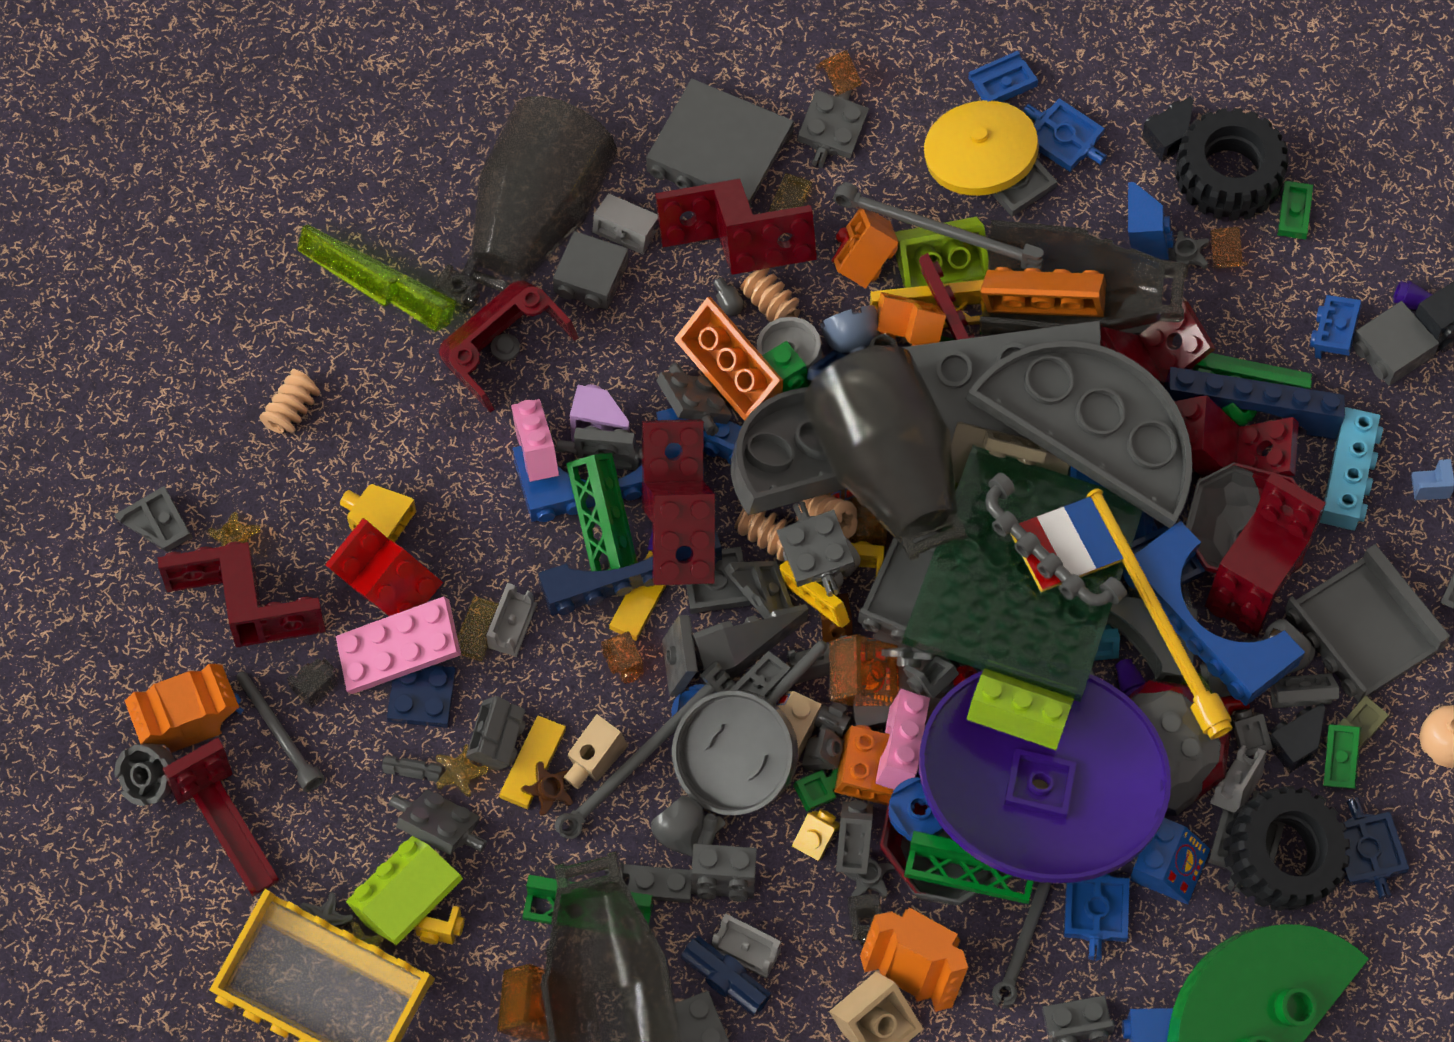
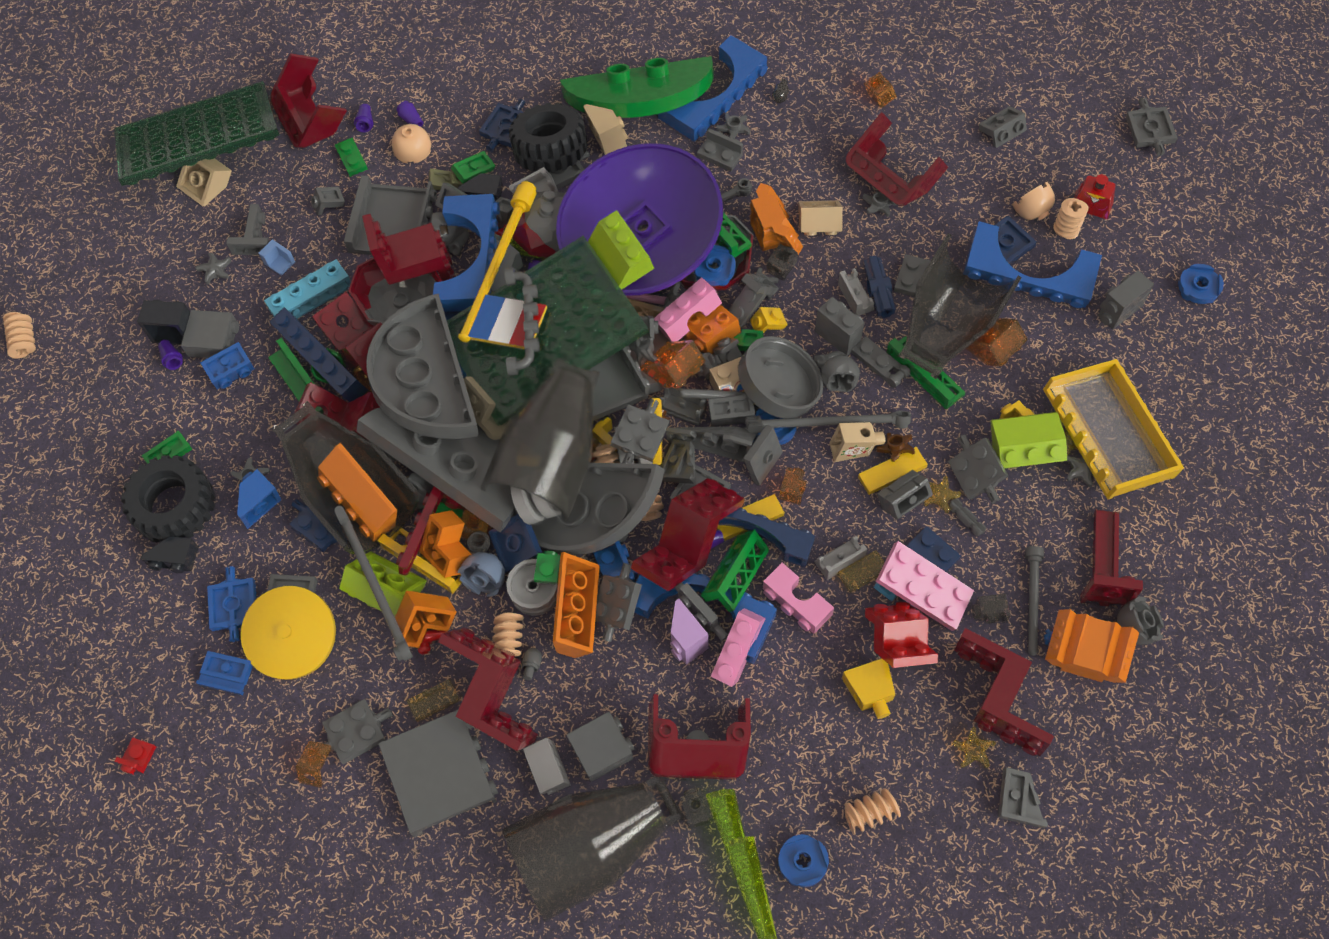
camera: 135 degrees left, 0 degrees up
(322, 337) = (795, 873): none -> blue plate
(497, 538) = (810, 612): none -> bright pink arch
(1226, 248) = (232, 457): clear orange bracket -> none
(1233, 914) = (606, 128): none -> tan slope

